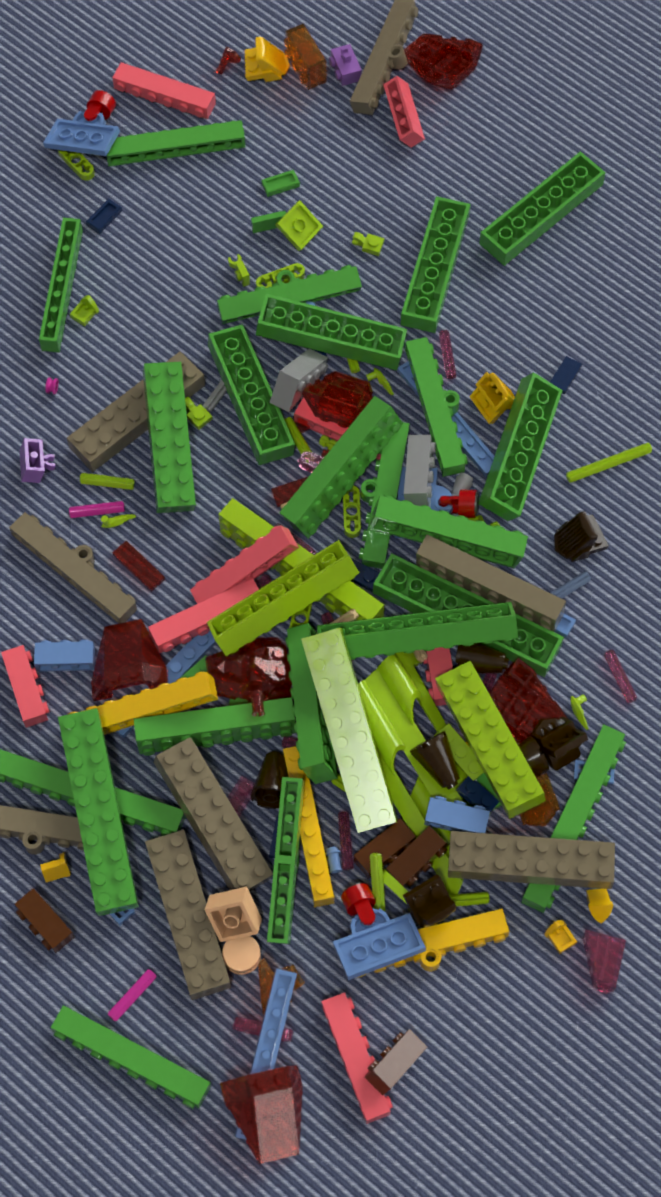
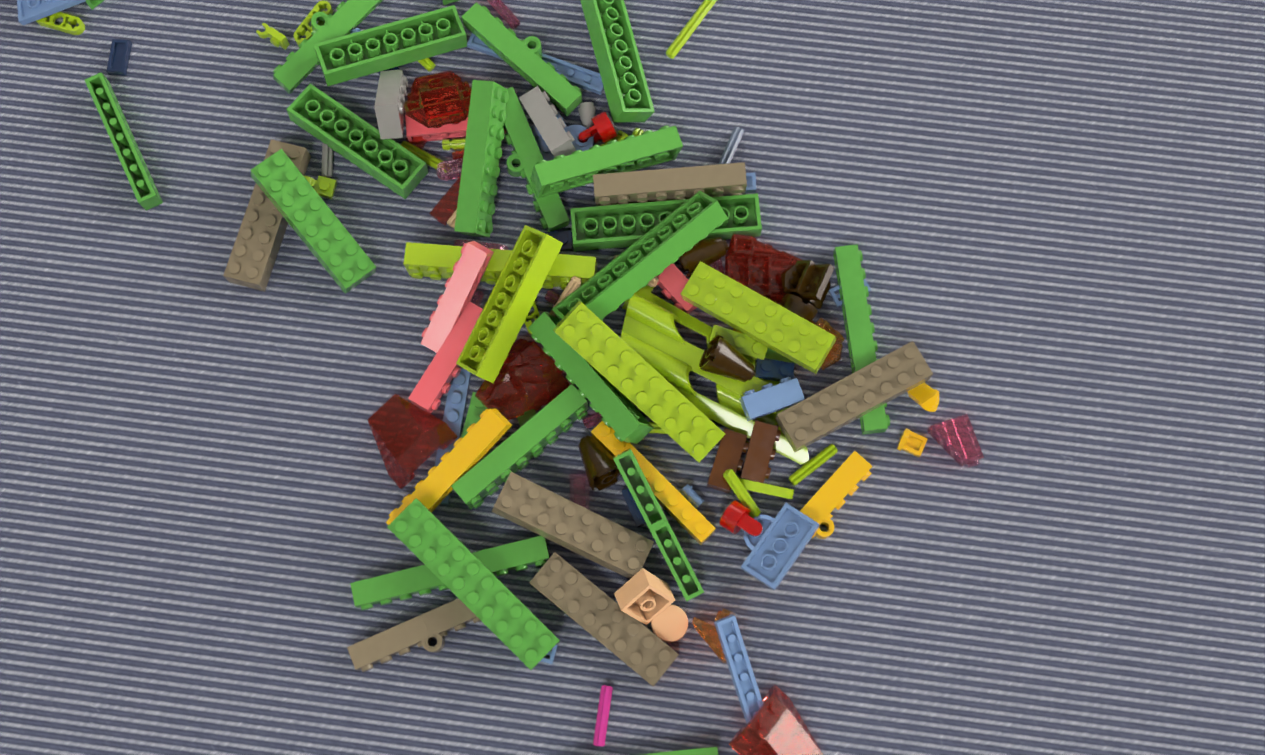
camera: 30 degrees left, 10 degrees up
(23, 682) = (334, 514): coral brick -> none
(33, 460) = (207, 313): medium lavender brick -> none
(43, 921) = (487, 703): reddish brown brick -> none
(52, 385) = (177, 236): dark pink bush -> none
(55, 869) = (468, 652): yellow tile -> none
(64, 656) = (350, 466): medium blue brick -> none
(73, 567) = (306, 385): dark tan hinge -> none
(84, 310) = (160, 152): lime tile -> none
(96, 509) = (291, 322): dark pink axle -> none
(107, 481) = (283, 291): lime axle -> none
(116, 520) = (314, 321): lime bar -> none
(138, 566) = (361, 349): clear red tile -> none
(253, 1027) = (721, 676): clear pink beam -> none
(257, 702) = (548, 408): clear red pin -> none
(345, 840) = (690, 474): clear pink axle -> none
(355, 1056) = (818, 648): coral brick -> none
(356, 518) = (522, 200): lime beam -> none
(381, 378) = (458, 61): lime bar -> none
(395, 1061) = (853, 631): brick -> none
(429, 902) = (798, 484): dark brown piece -> none
(492, 397) = (563, 23): yellow piece -> none
(578, 711) = (805, 248): lime bar -> none
(579, 538) = (712, 101): dark brown piece -> none
(620, 676) = (819, 198): clear pink axle -> none

